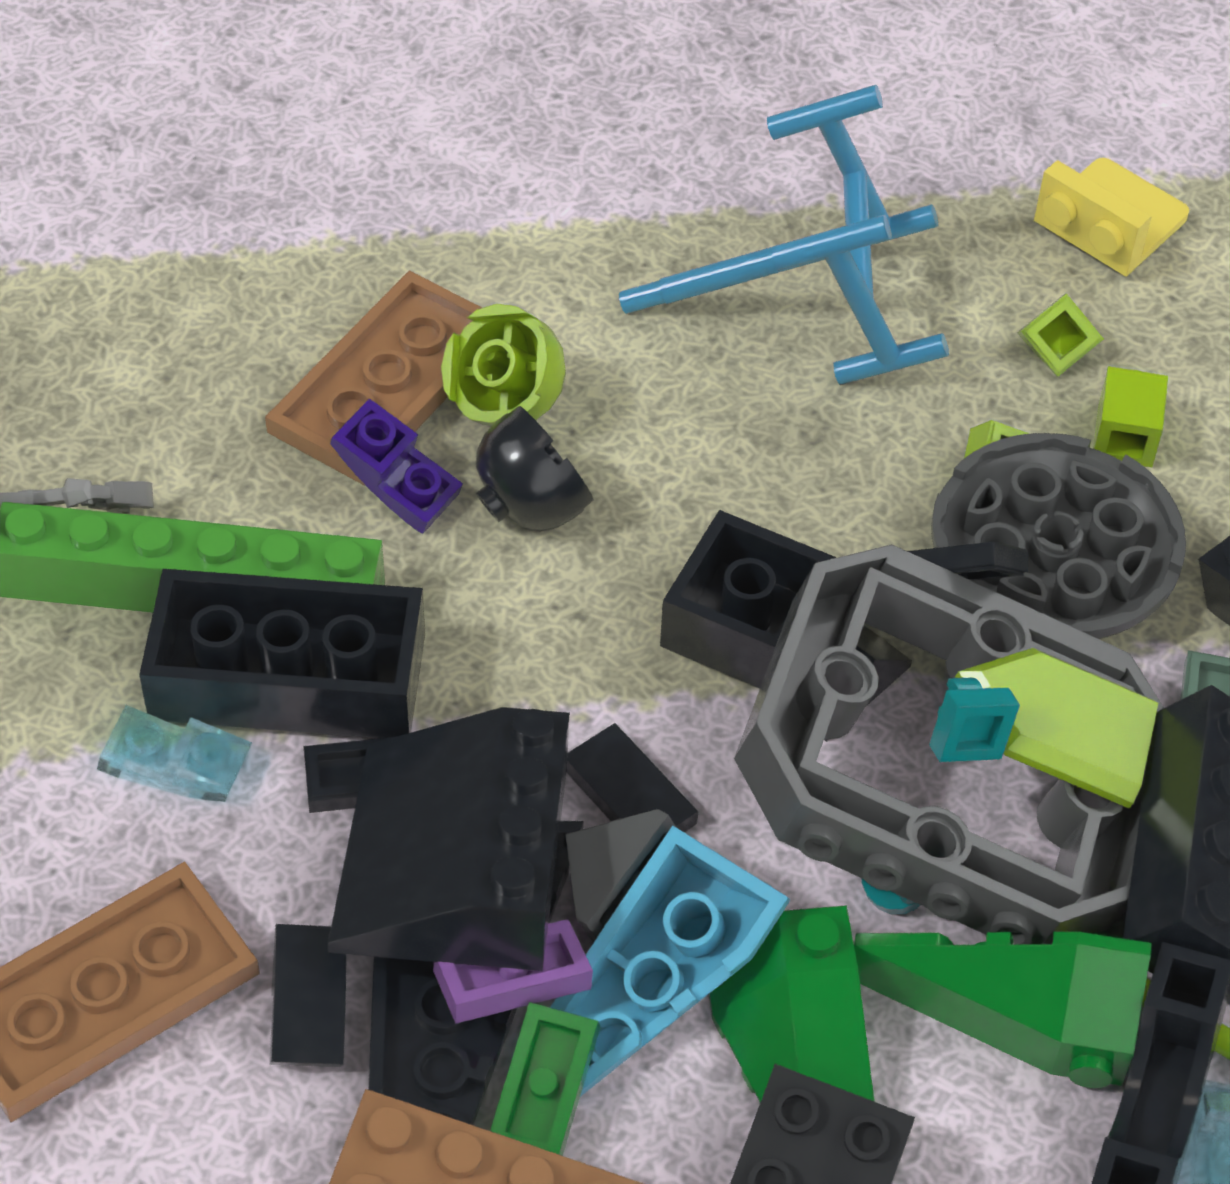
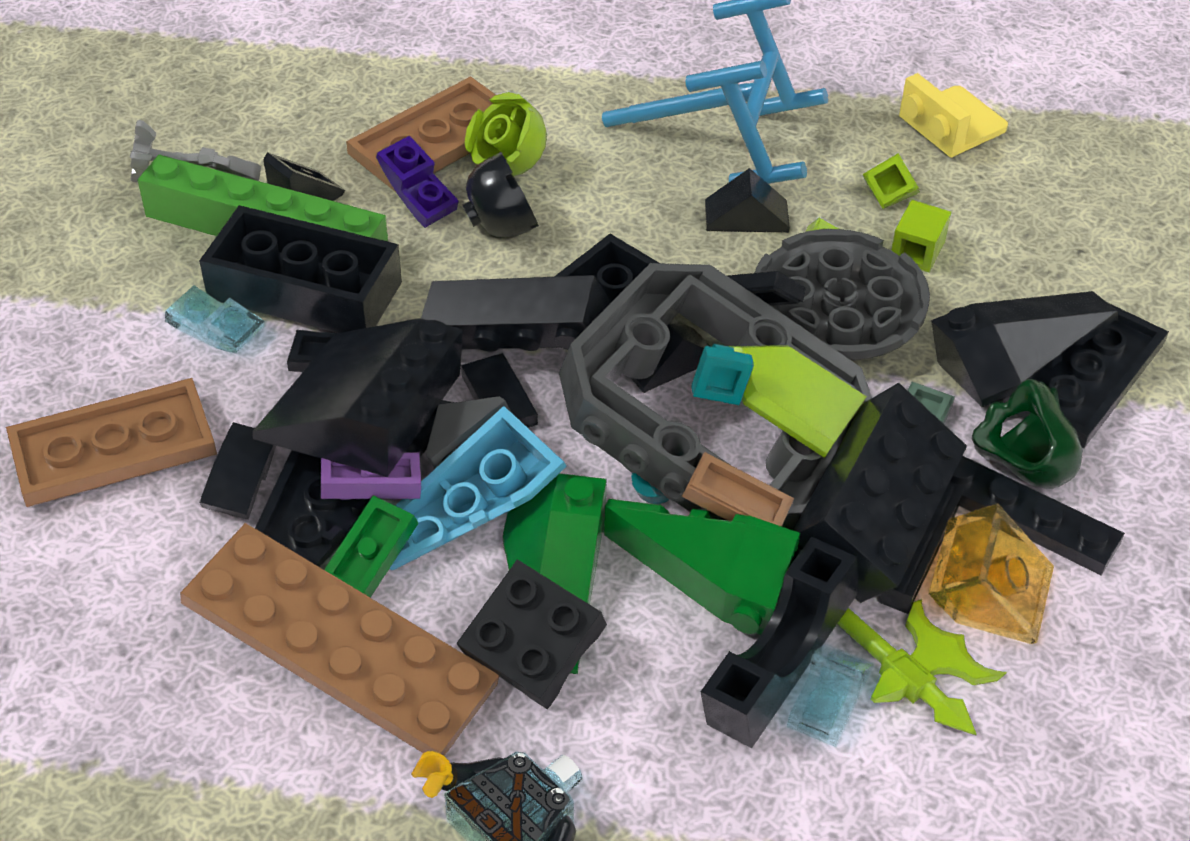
camera: 15 degrees right, 5 degrees down
(222, 497) = (300, 178): none -> black slope
(632, 665) = (517, 310): none -> black brick
(873, 414) = (747, 206): none -> black slope
(1040, 898) = (731, 492): none -> medium nougat tile

